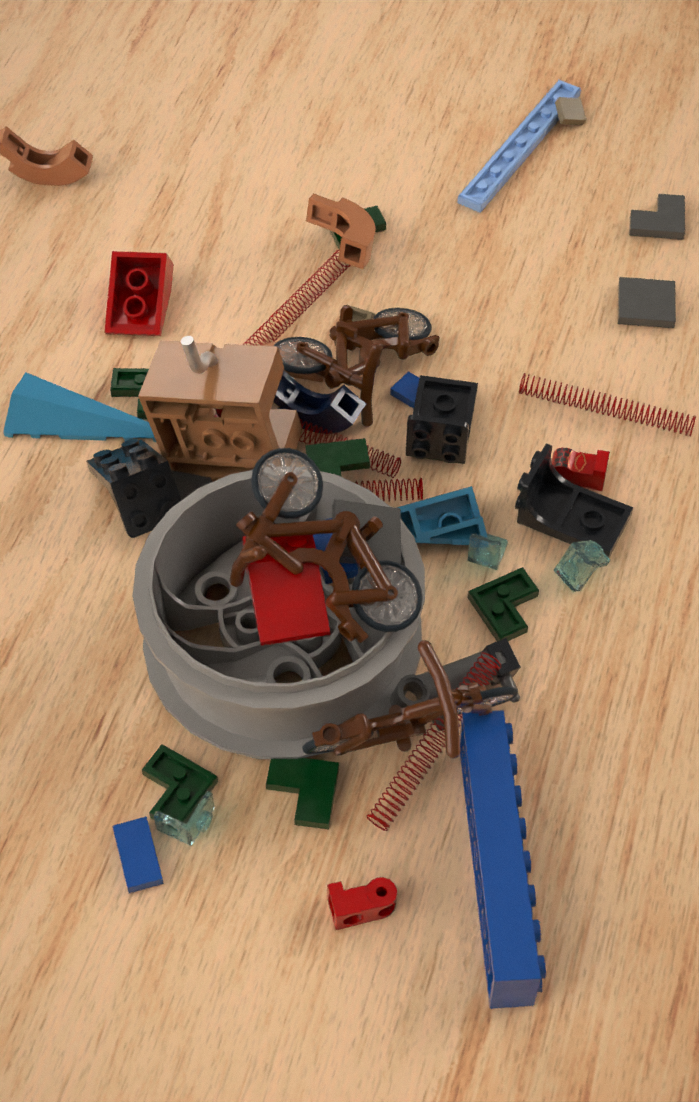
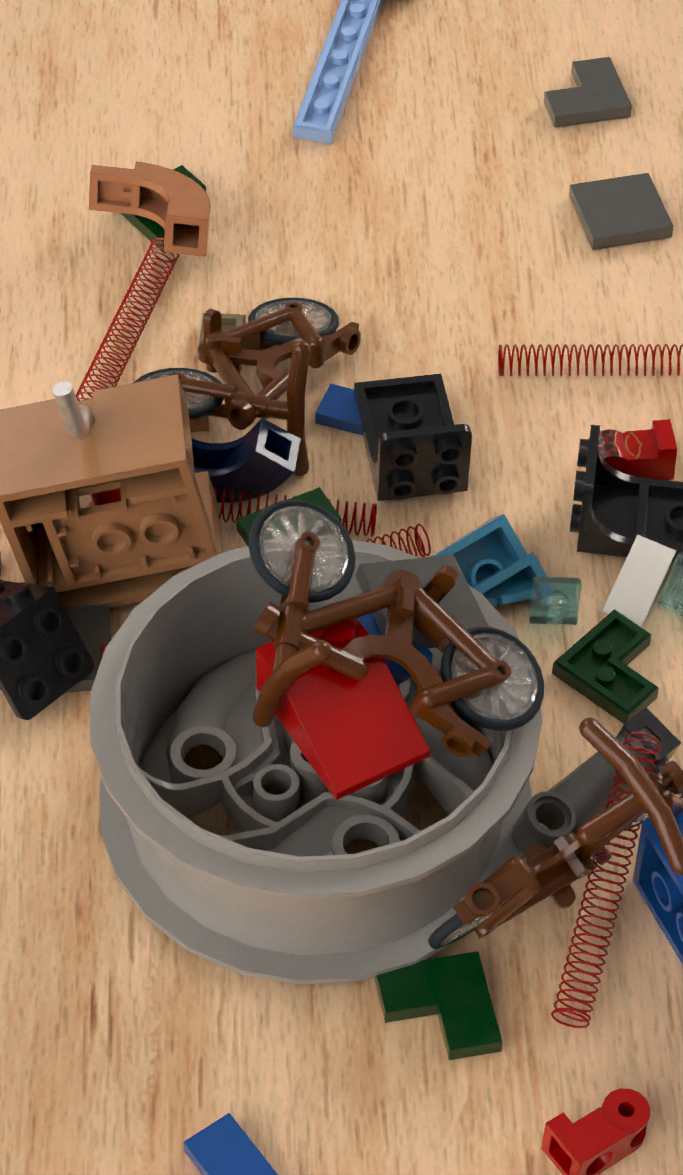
camera: 20 degrees left, 5 degrees down
(184, 783) = (264, 1050): dark green tile -> none
(198, 822) = (299, 1112): clear light blue bracket -> none
(546, 552) = (639, 579): none -> white sticker

